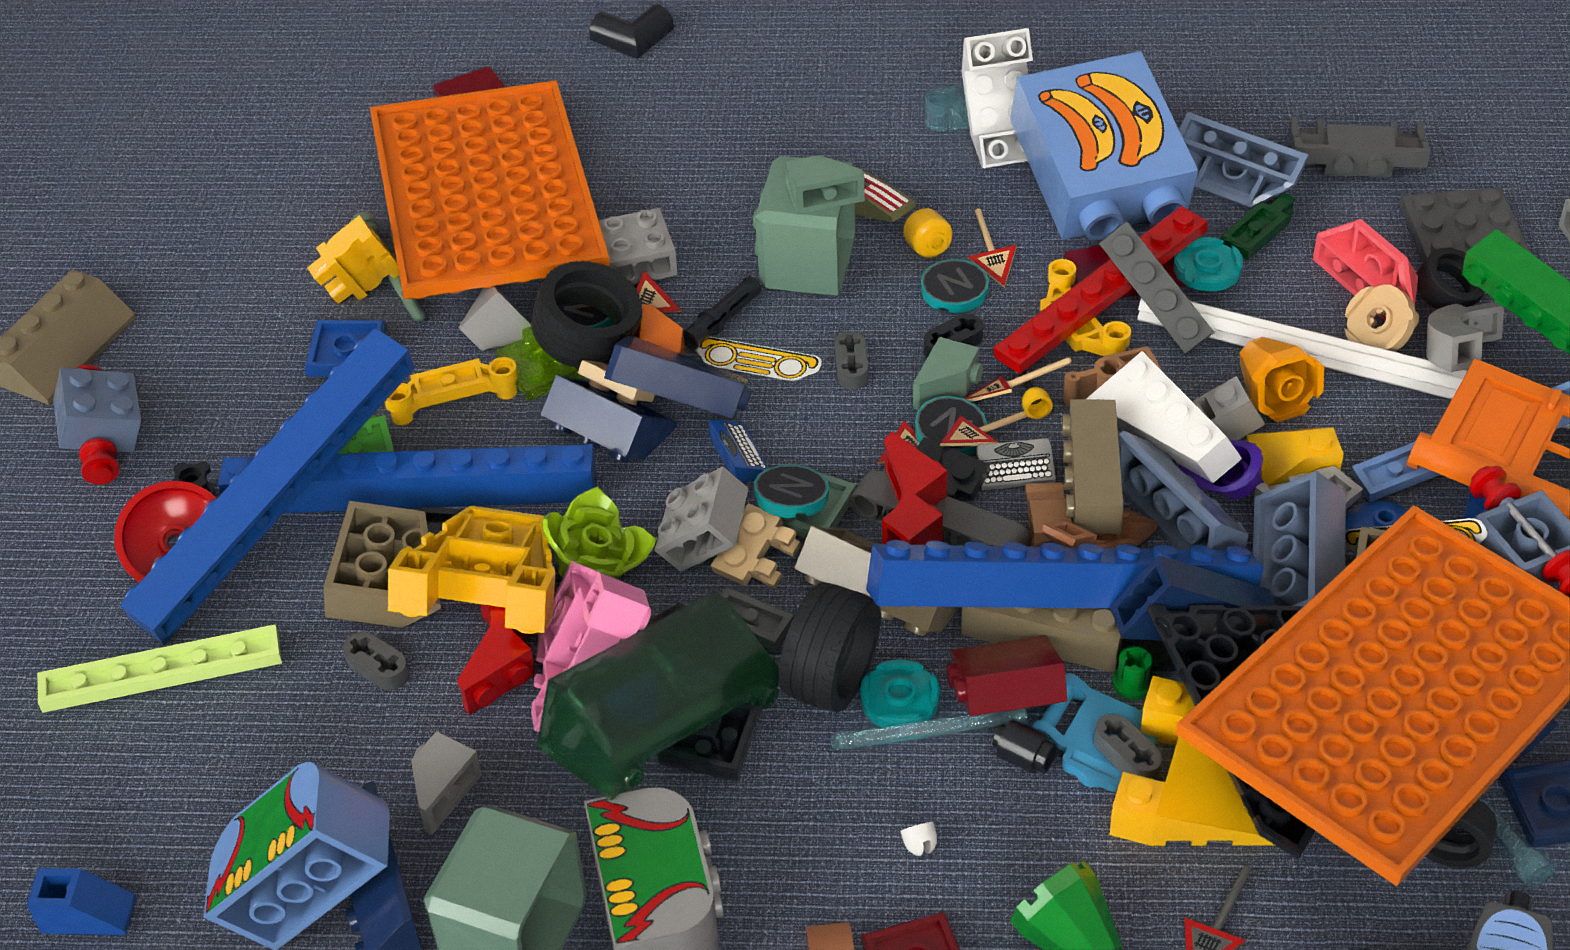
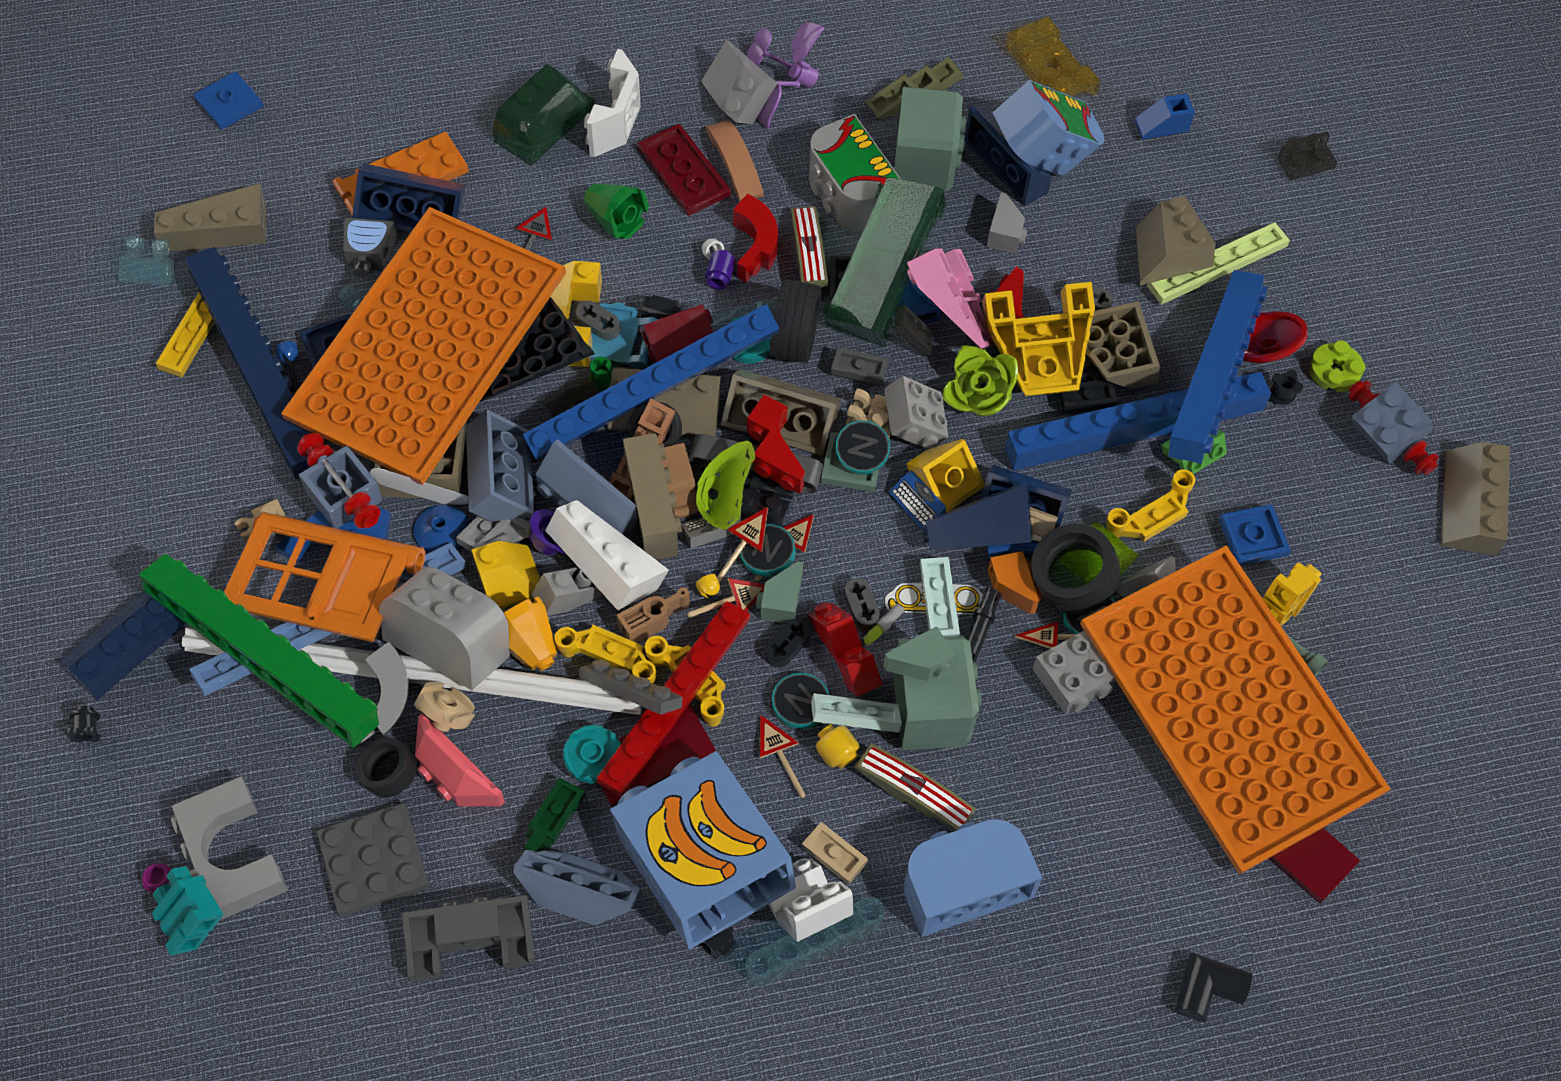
camera: 160 degrees right, 15 degrees up
(87, 502) = (1342, 355): none -> lime plate
(215, 688) = (1172, 242): none -> dark tan wedge
(694, 459) = (948, 472): none -> yellow slope
(757, 342) = (939, 595): none -> light aqua plate
(763, 804) = (809, 246): none -> slope
(827, 339) = (884, 624): none -> light grey piece
(831, 106) = (969, 874): none -> medium blue brick
(834, 863) = (760, 224): none -> red arch
(890, 313) = (841, 638): none -> red arch
(897, 250) = (856, 713): none -> light aqua plate
(916, 794) = (720, 269): none -> dark purple brick
(959, 159) = (834, 853): none -> tan plate
(992, 468) = (729, 485): none -> lime piece
(1176, 359) = (606, 646): none -> yellow plate
(1177, 587) = (562, 389): dark blue slope -> none
(1385, 363) = (446, 626): none -> light grey brick

